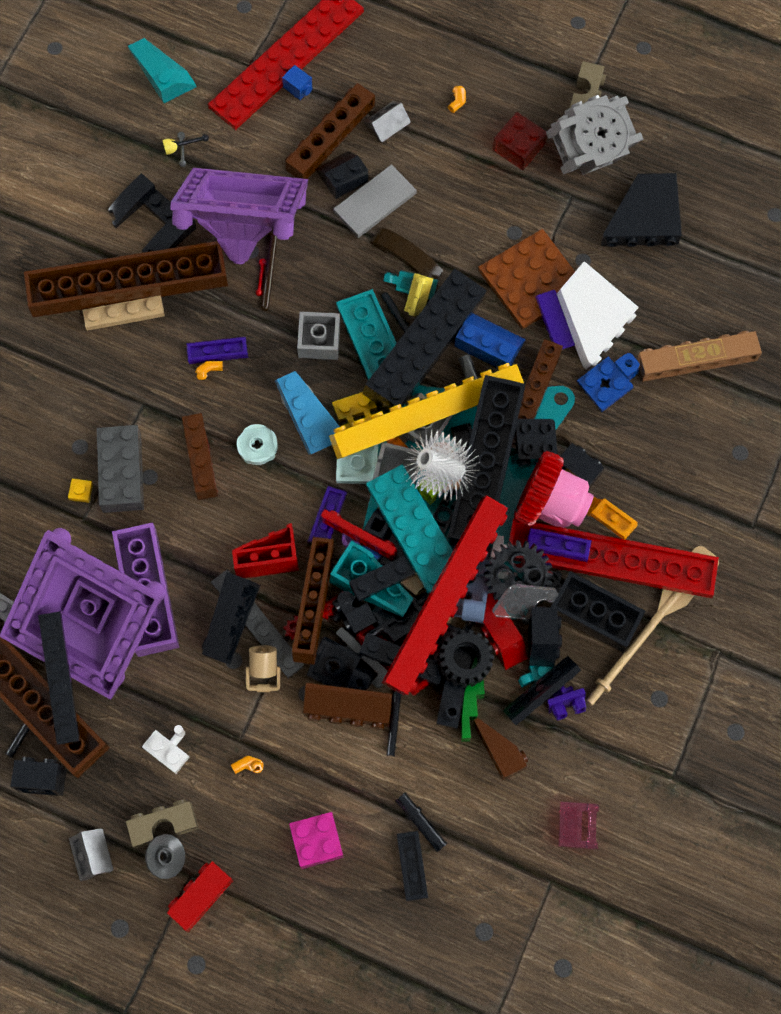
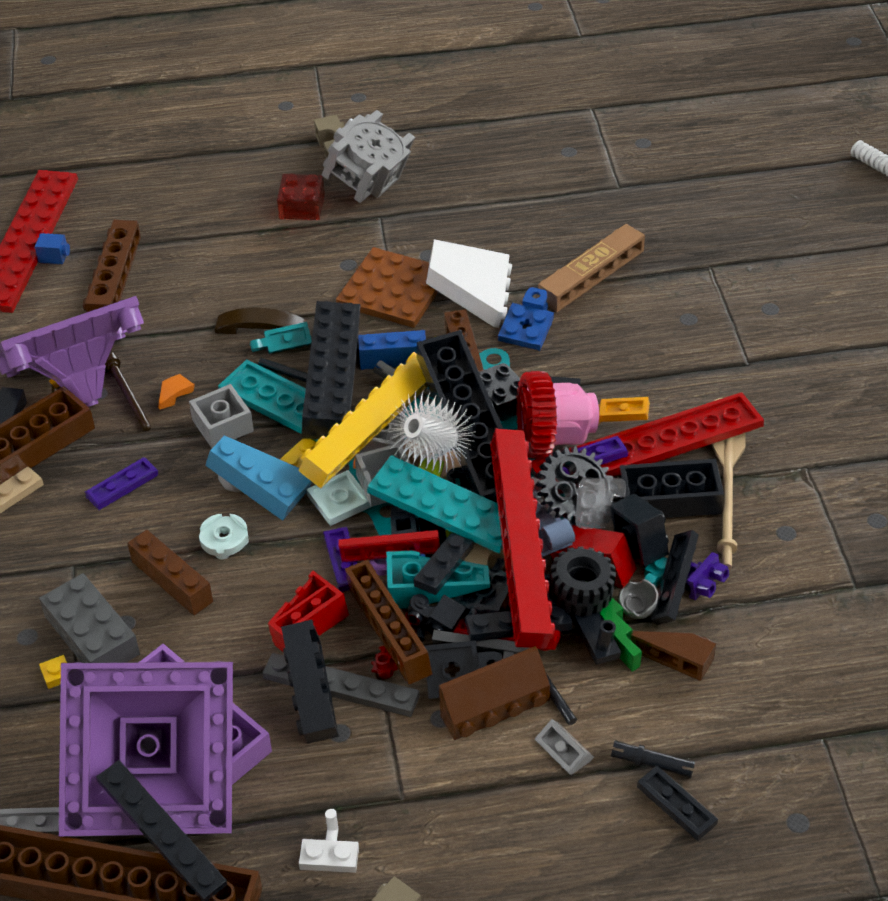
camera: 30 degrees left, 25 degrees down
(208, 366) = (123, 498): light orange arm -> none
(249, 763) = (430, 812): light orange arm -> none
(262, 262) = (117, 395): red hinge -> none
(263, 665) = (375, 707): tan piece -> none
(304, 283) = (173, 388): none -> orange slope
(316, 840) = (560, 836): dark pink brick -> none
(343, 174) = (153, 291): black slope -> none
(371, 771) = (563, 747): none -> light grey slope
(374, 201) = (195, 300): light grey tile -> none
(388, 120) = (163, 237): panel -> none
(418, 294) = (295, 341): light yellow hinge -> none
(460, 99) = (219, 195): light orange arm -> none
(503, 690) = (638, 599): none -> light grey hair
(555, 319) = (436, 297): dark purple tile -> none
(571, 825) = (801, 677): clear pink plate -> none
(647, 213) = (460, 194): black slope -> none

